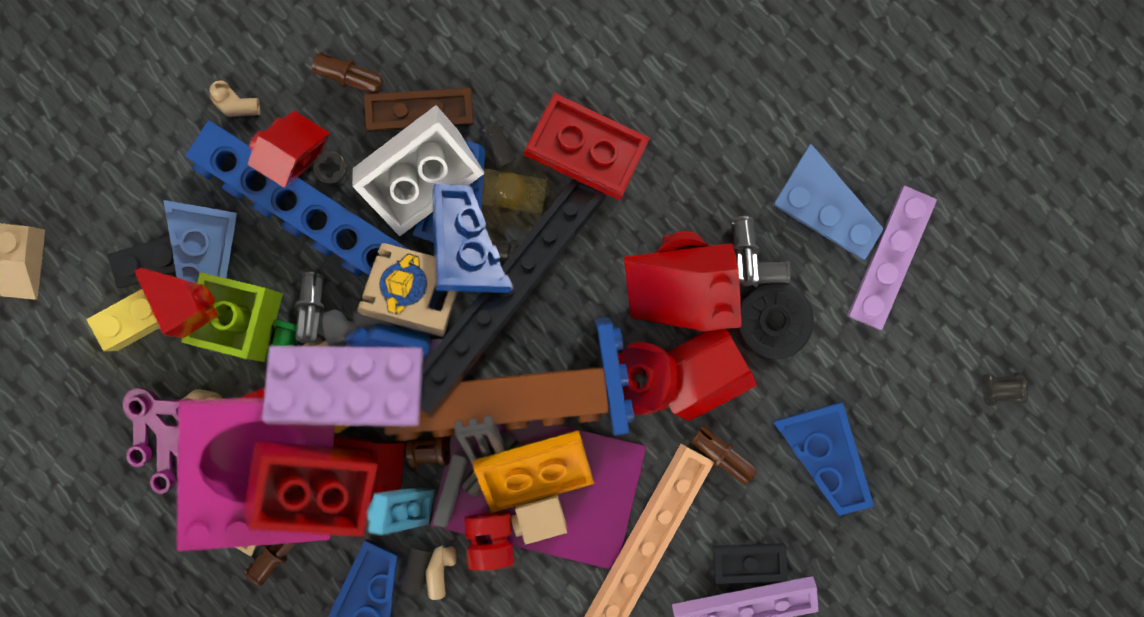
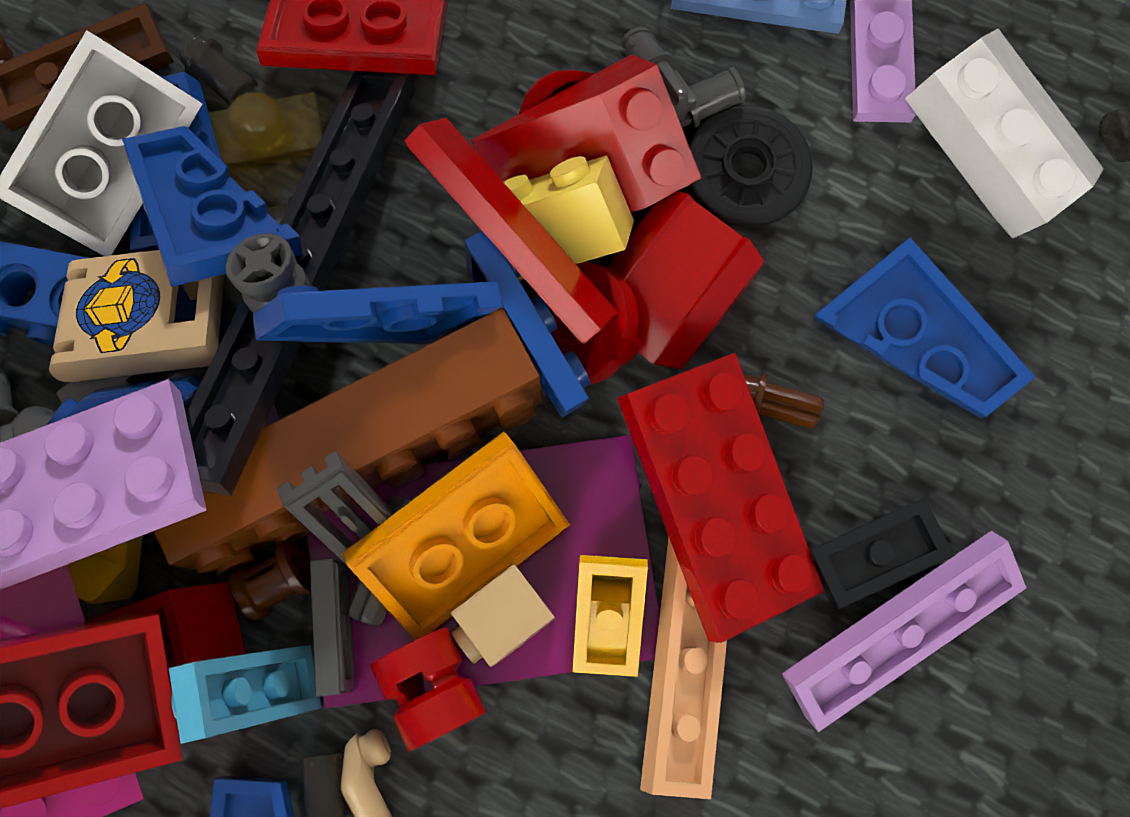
camera: 15 degrees left, 10 degrees down
(487, 296) = (262, 268): none -> dark grey wheel
(531, 344) = (375, 314): none -> blue wing
(595, 542) = (609, 615): none -> yellow slope
(625, 328) = (511, 227): none -> red tile
(654, 320) = (578, 207): none -> light yellow brick
(678, 502) = (721, 497): none -> red plate
(927, 364) = (1005, 135): none -> white slope

